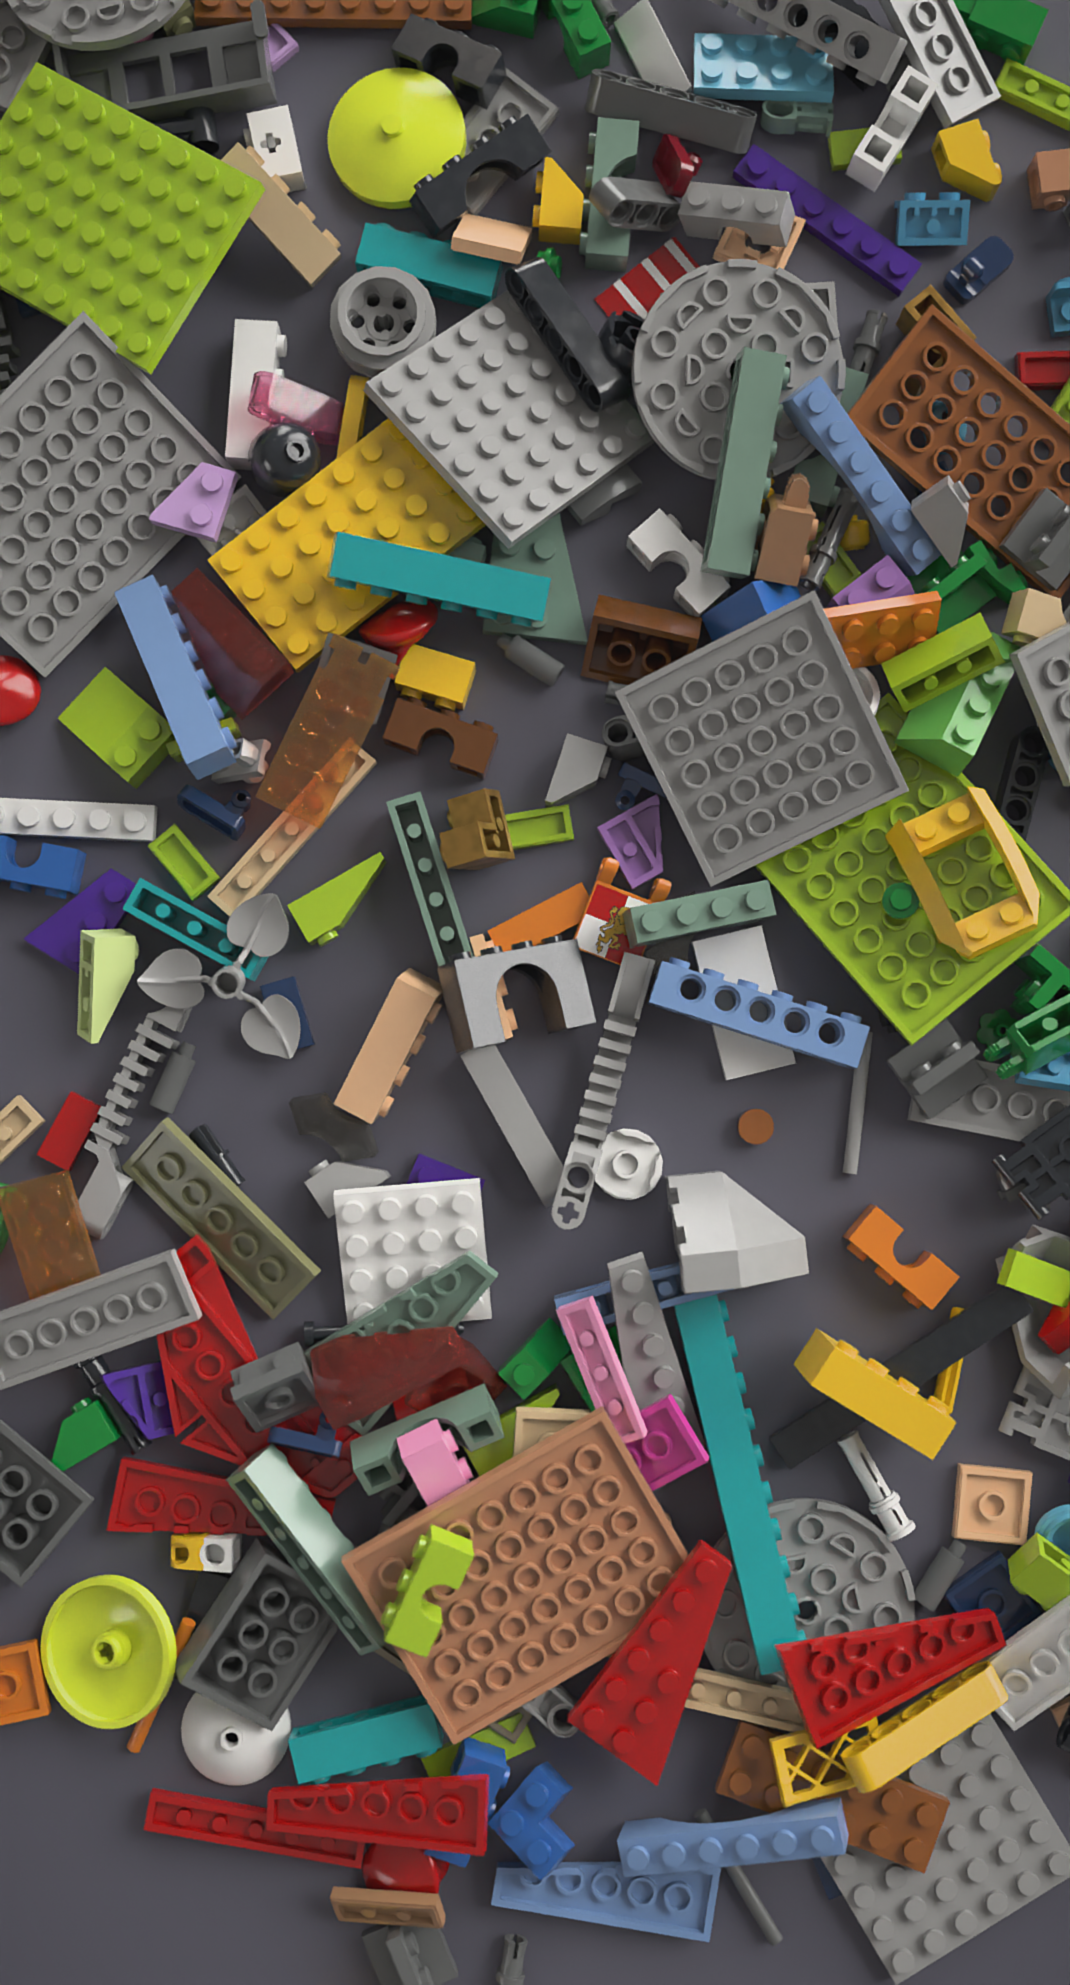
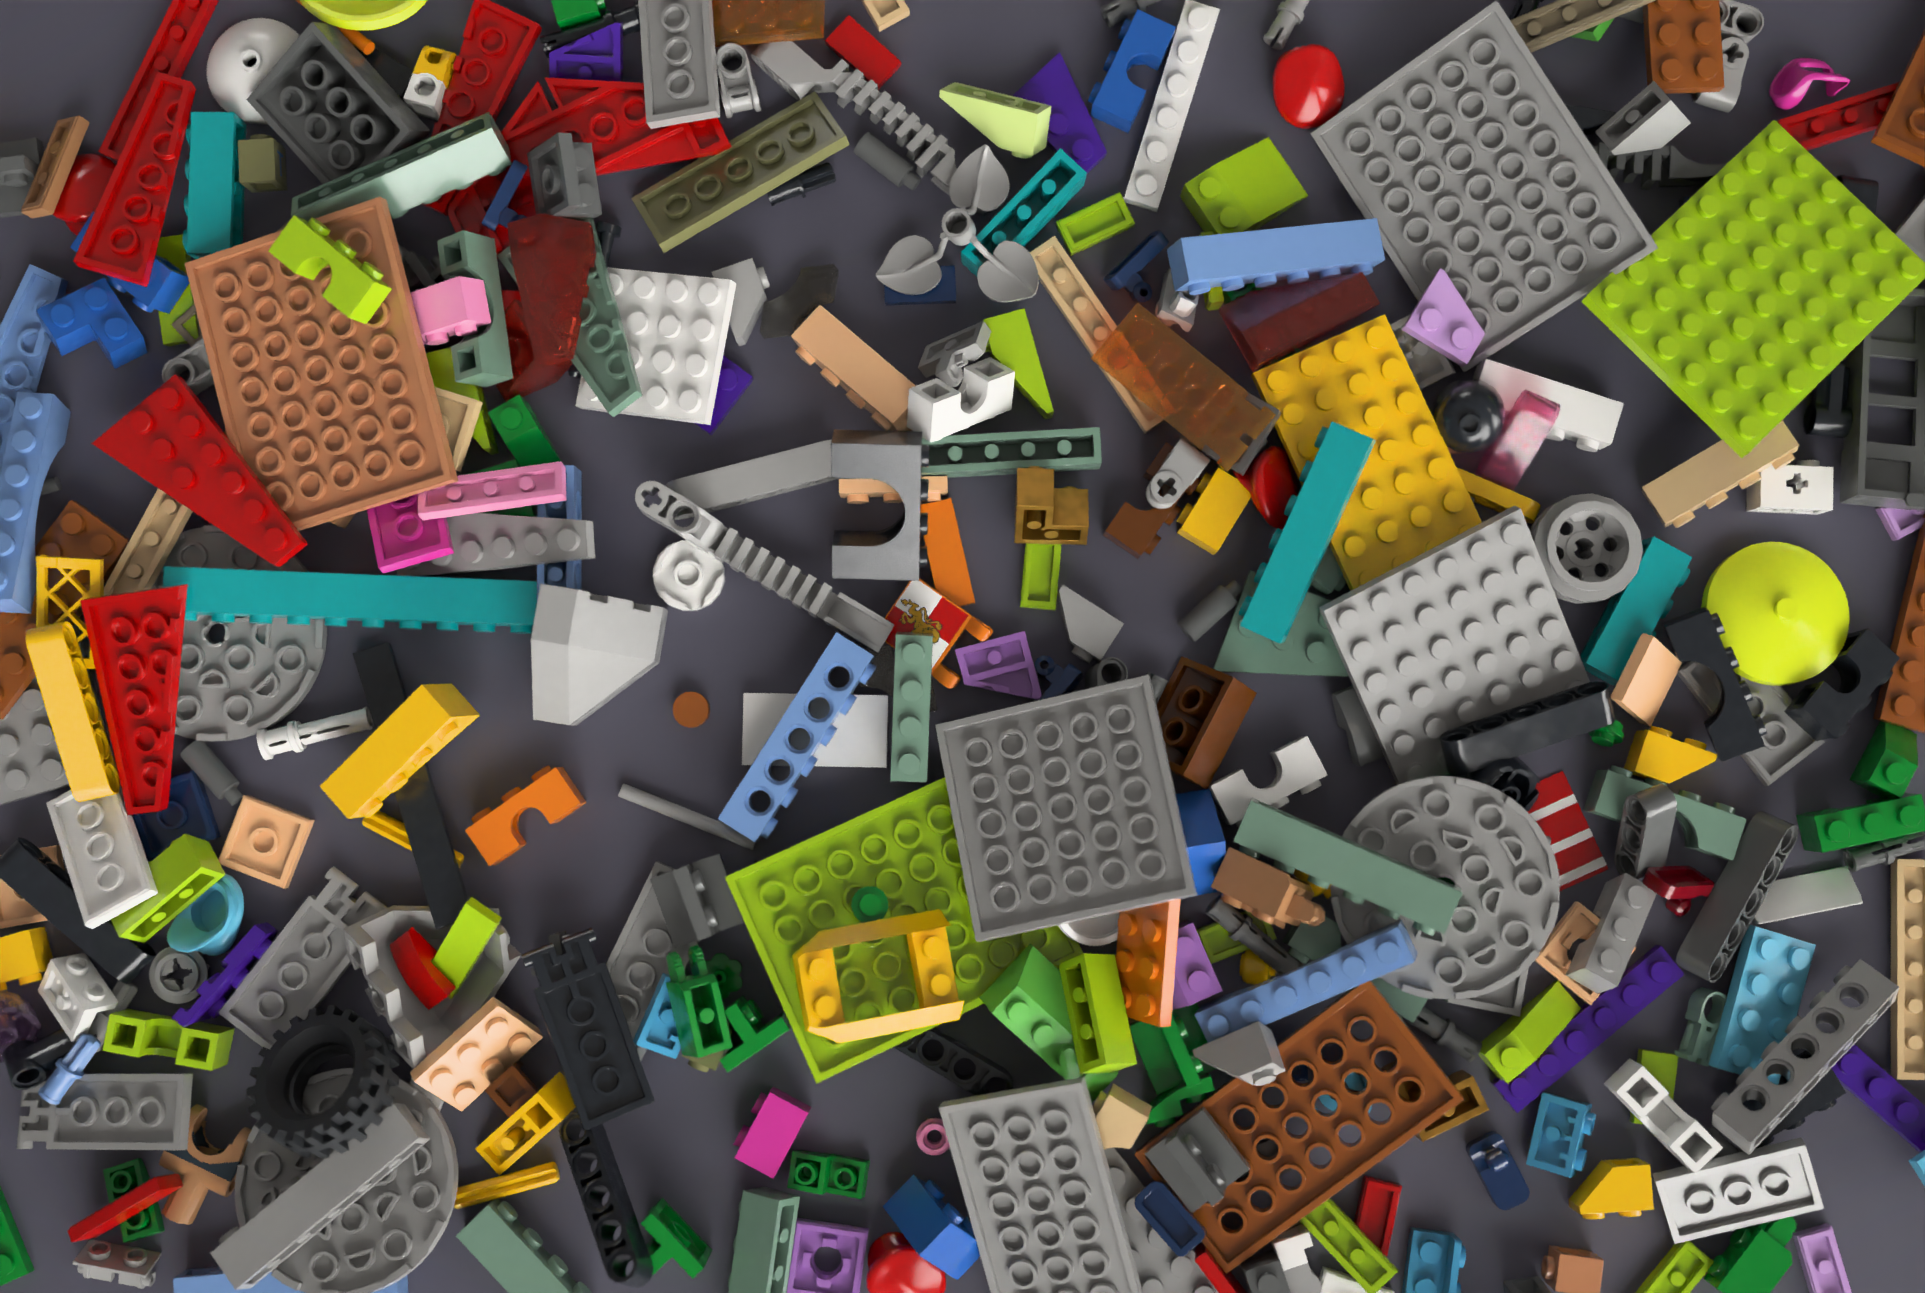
camera: 105 degrees right, 0 degrees up
(136, 1244) = (737, 86): none -> light grey piece
(331, 1698) = (262, 164): none -> olive brick
(349, 962) = (951, 353): none -> light grey hinge
(408, 714) = (1178, 471): none -> light grey piece
(409, 956) = (942, 410): none -> white arch
(857, 274) = (1526, 1037): none -> lime slope

